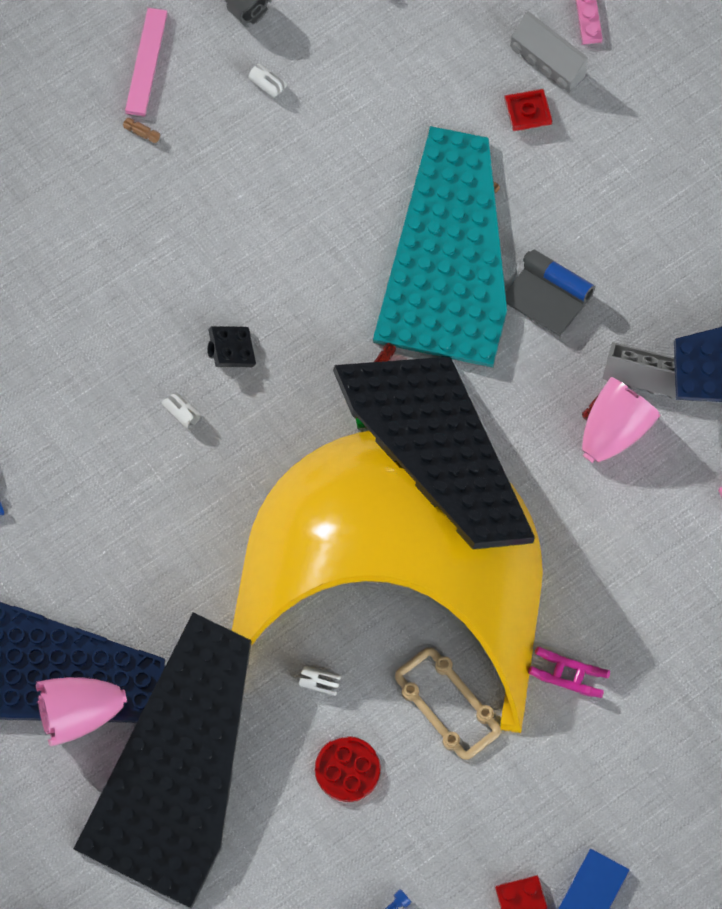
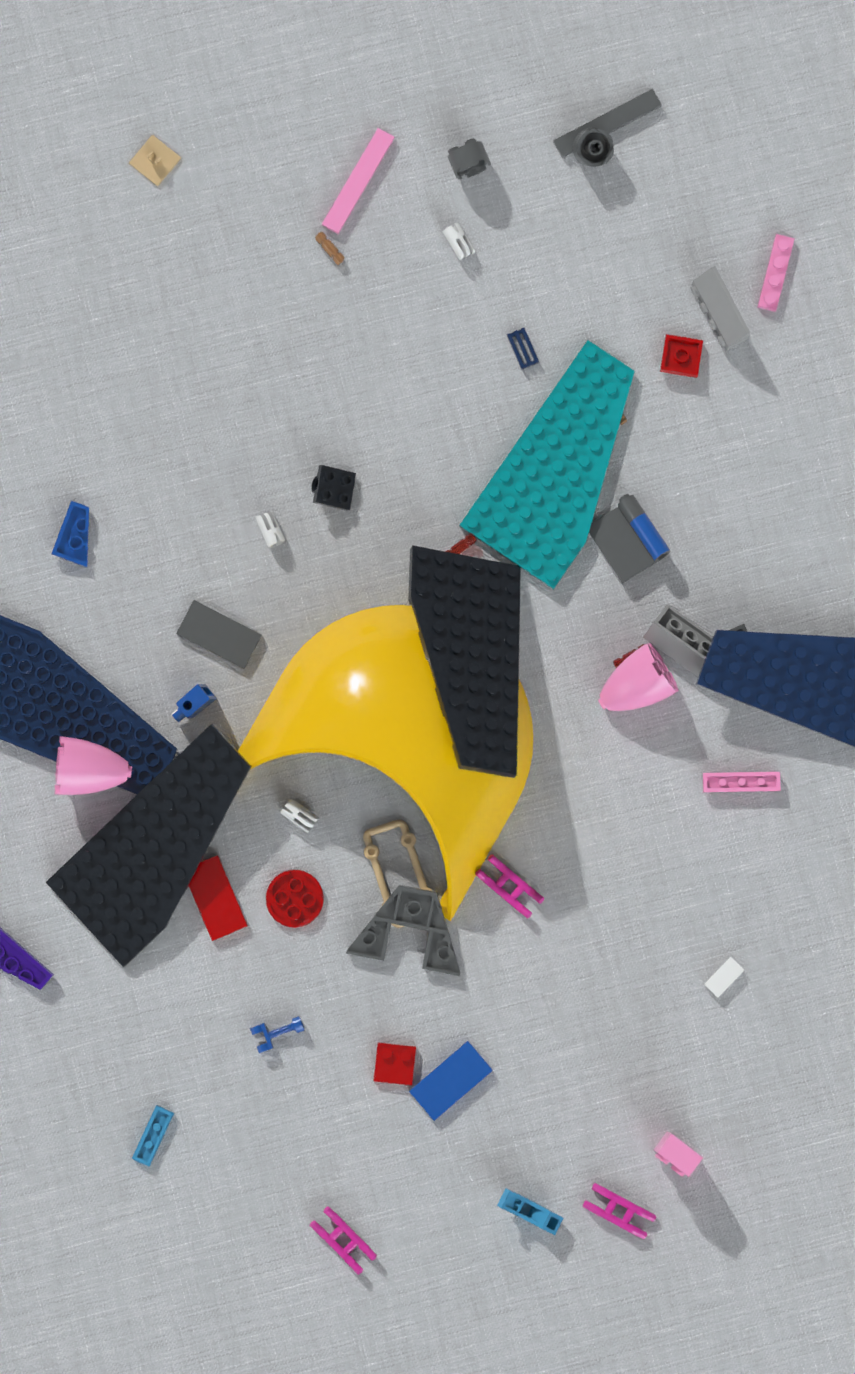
camera: 20 degrees right, 15 degrees up
(166, 531) = (219, 634): none -> dark grey tile
(169, 597) = (199, 696): none -> blue torso
(264, 800) = (216, 899): none -> red tile
(358, 145) = (517, 334): none -> dark blue tile
(479, 730) = (412, 909): none -> dark grey wing

